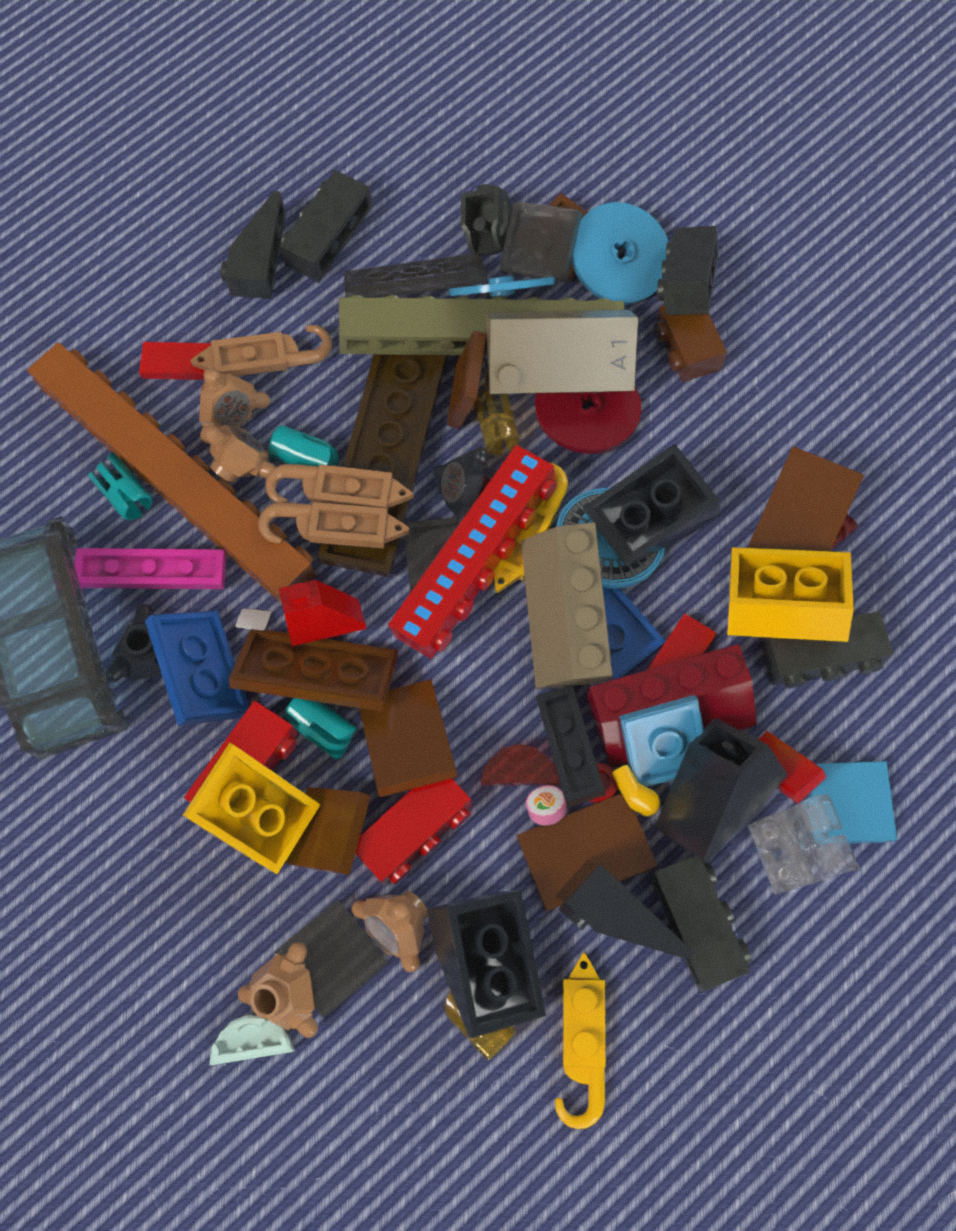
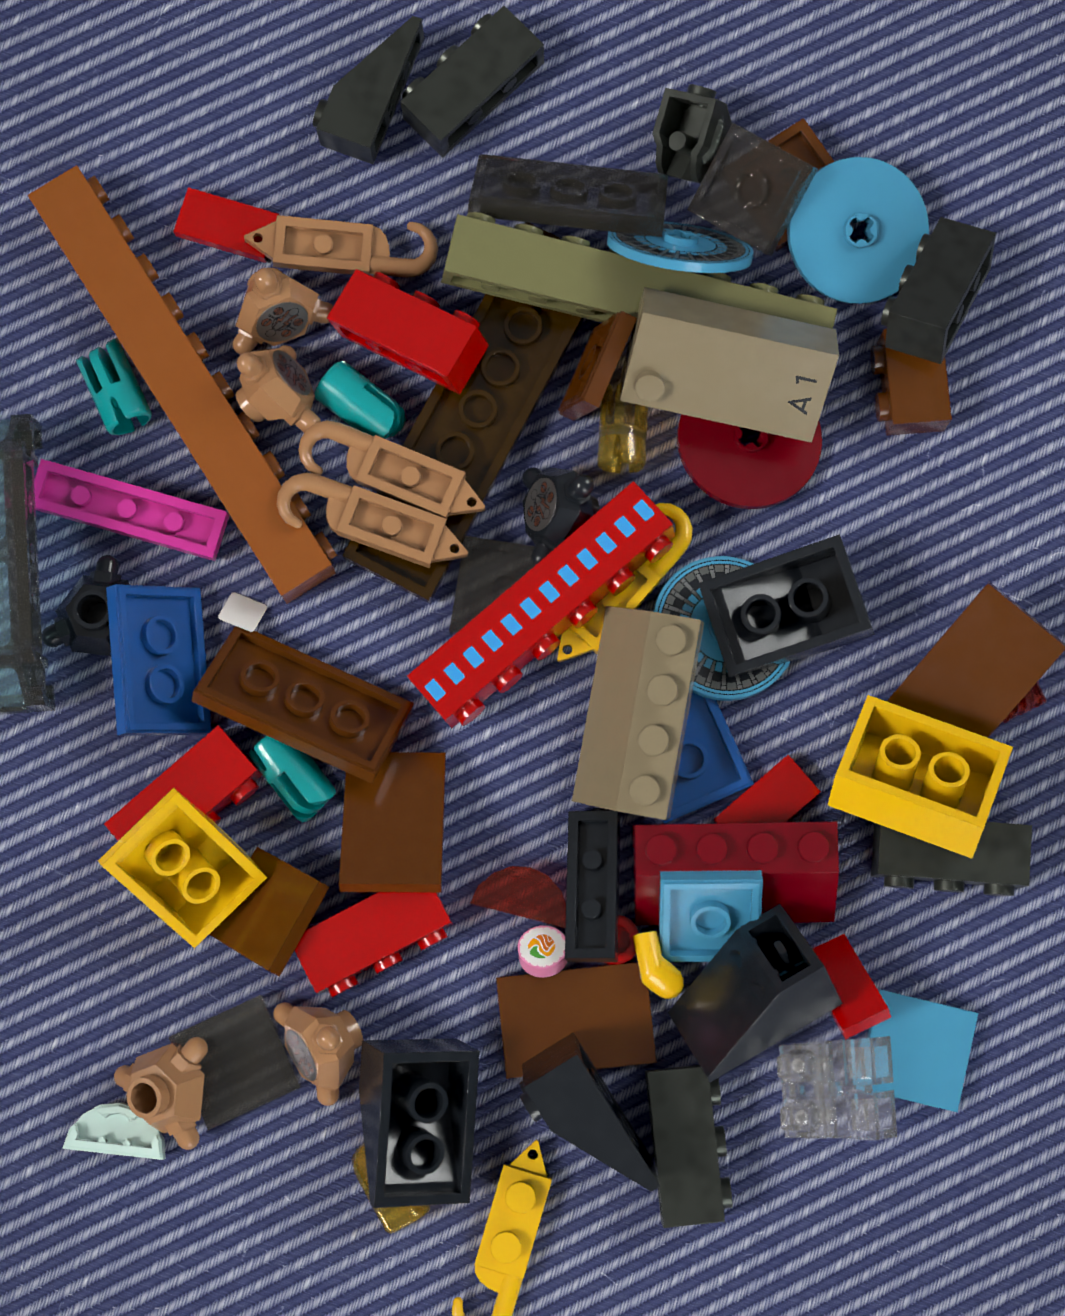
camera: 15 degrees right, 10 degrees up
(319, 612) = (327, 630): red slope -> none
(325, 391) = (409, 329): none -> red brick

